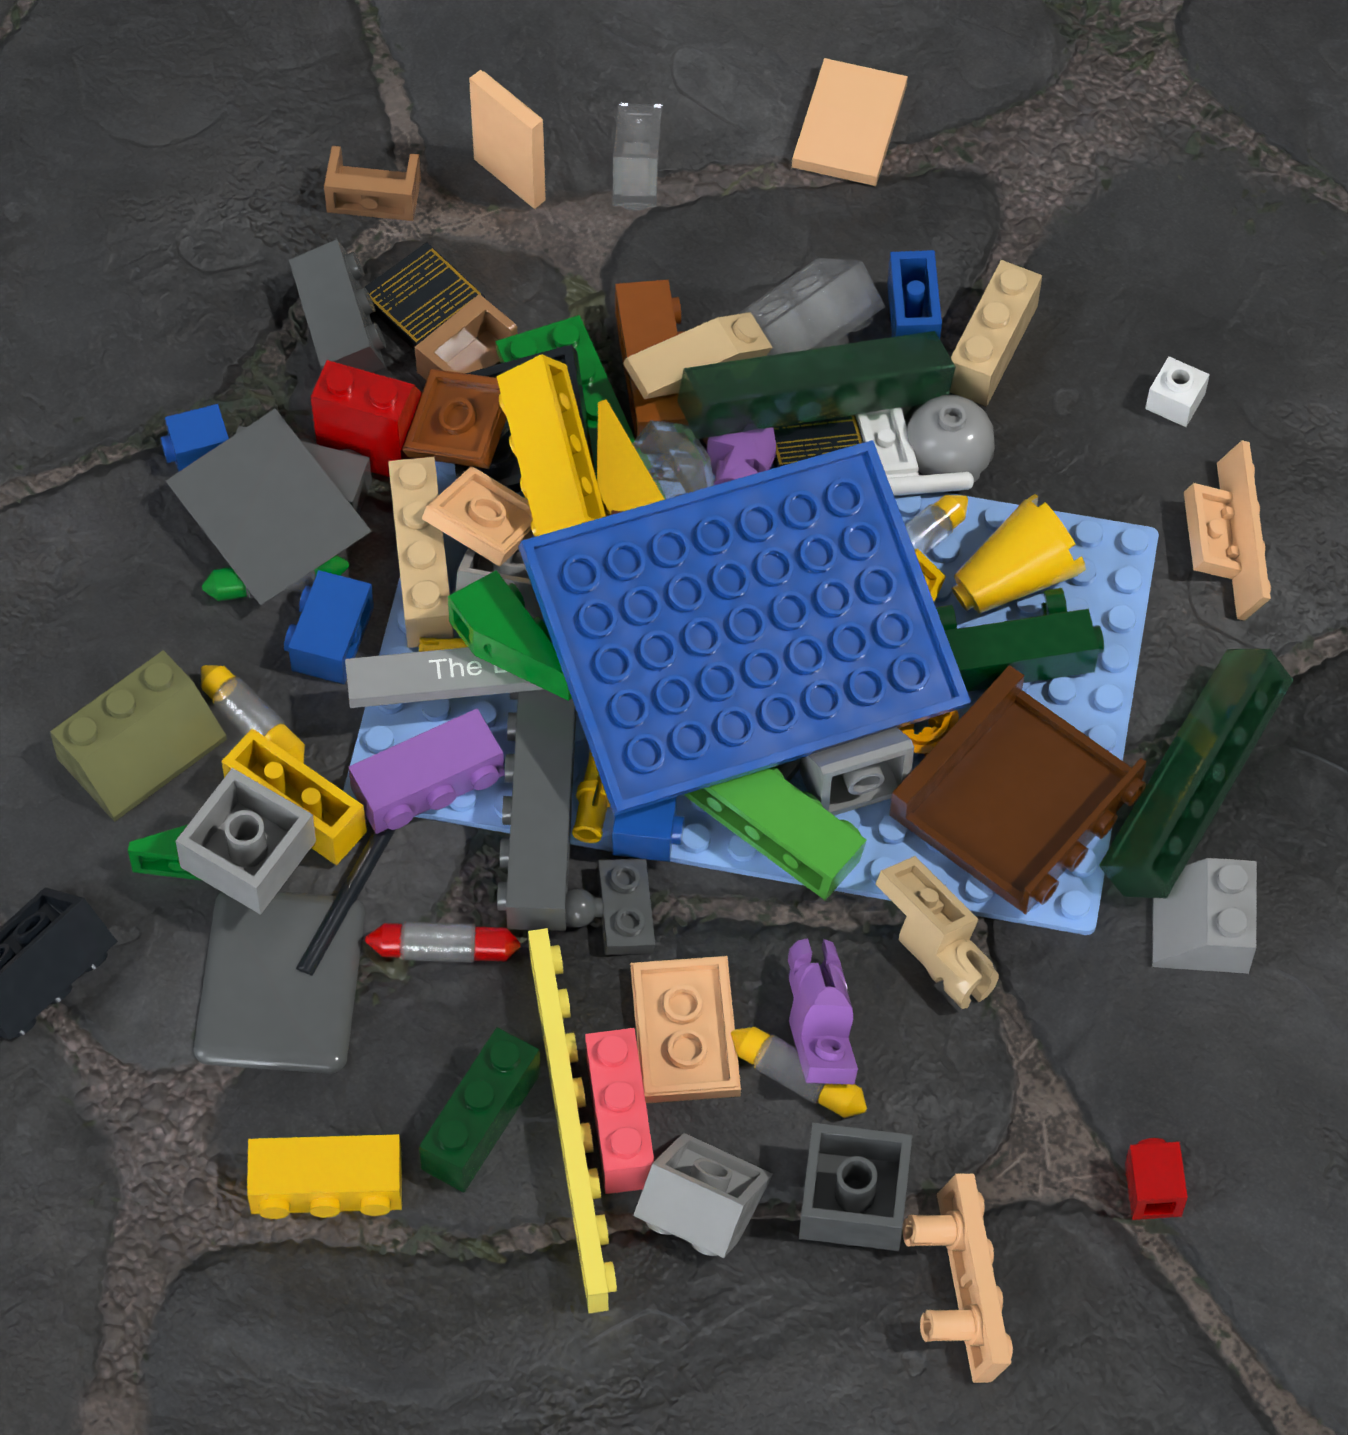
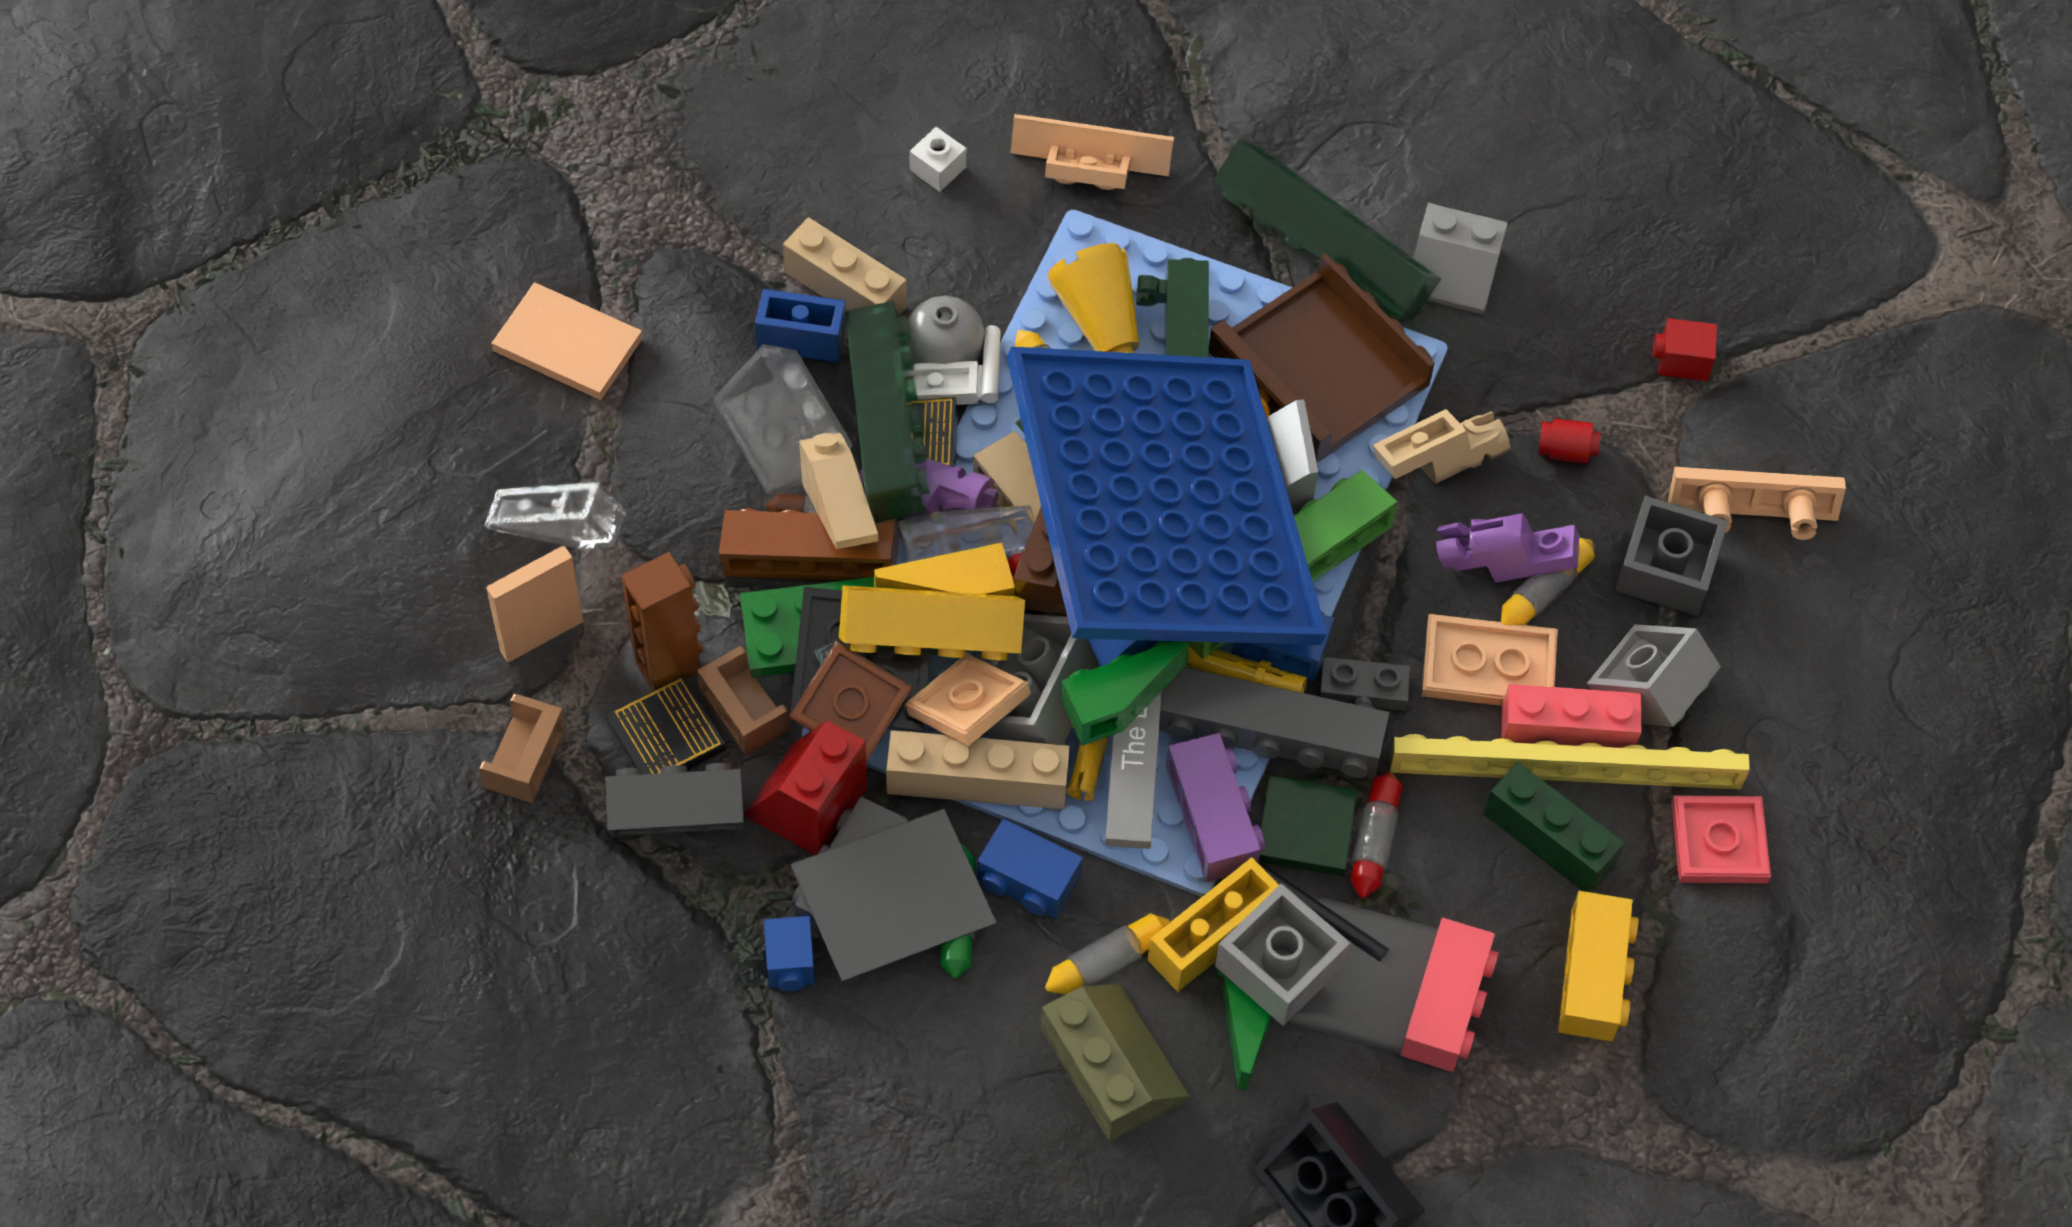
camera: 80 degrees left, 0 degrees up
(256, 1028) = (1450, 995): none -> coral brick
(442, 876) = (1307, 825): none -> dark green tile
(499, 233) = (662, 620): none -> dark orange brick
(515, 1294) = (1720, 839): none -> coral tile
(991, 1067) = (1569, 441): none -> red brick

